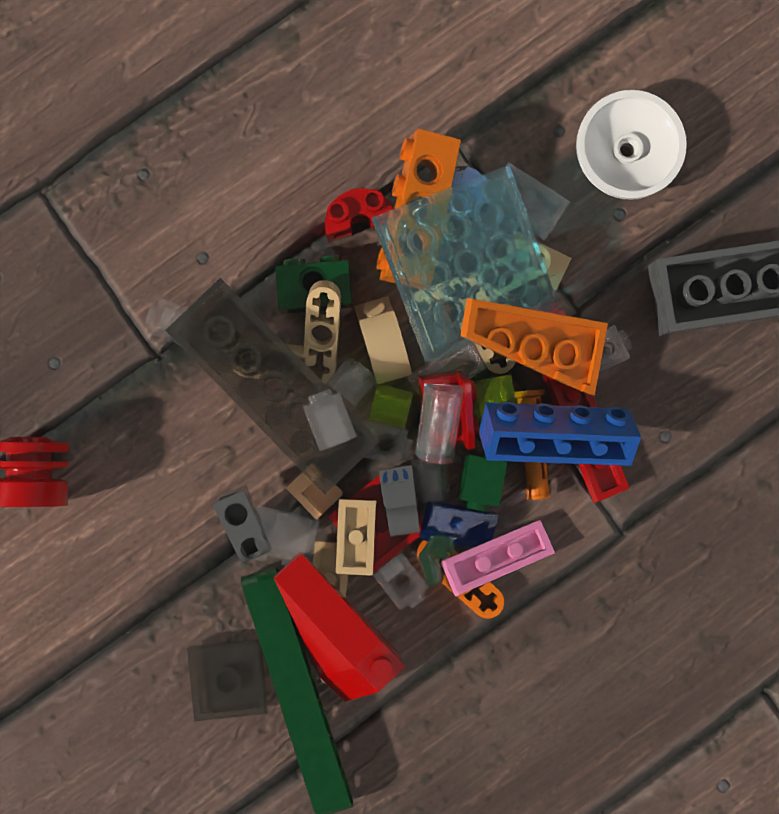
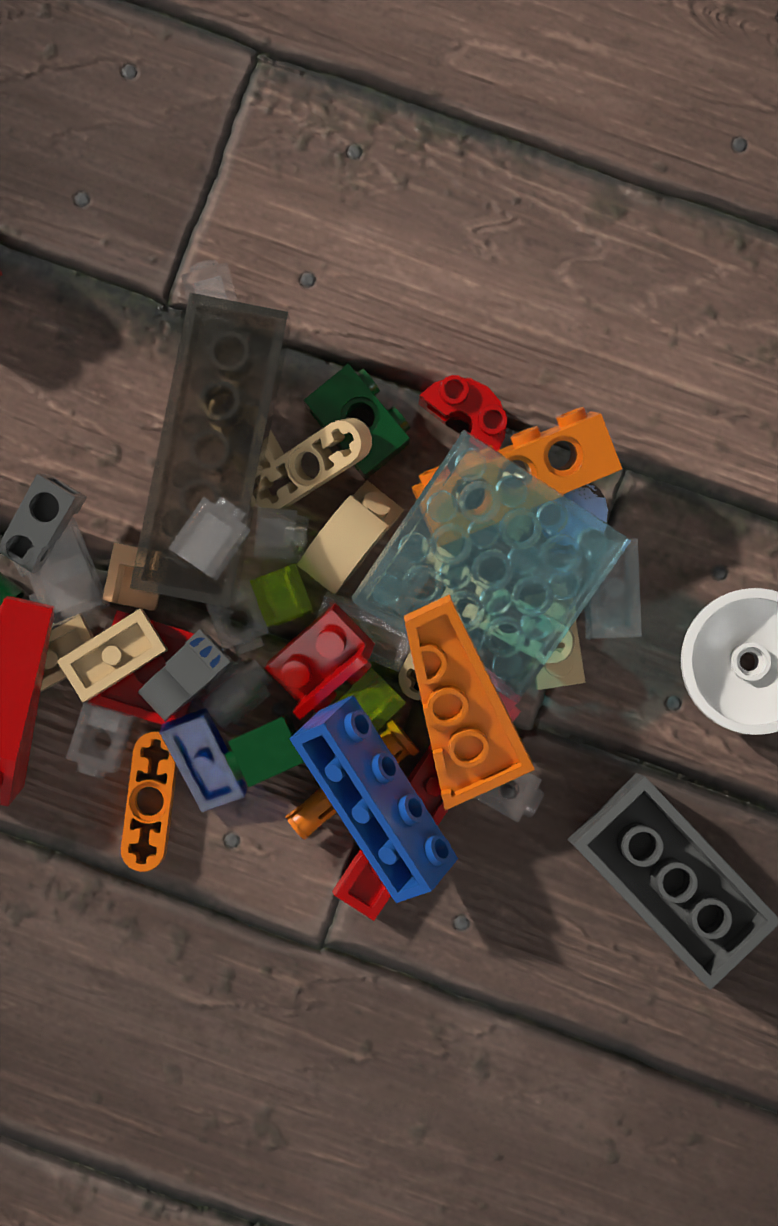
camera: 60 degrees right, 0 degrees up
(431, 555) = (148, 751): clear green arm -> none
(439, 423) = (298, 660): clear brick -> none
(497, 557) = (197, 827): bright pink plate -> none

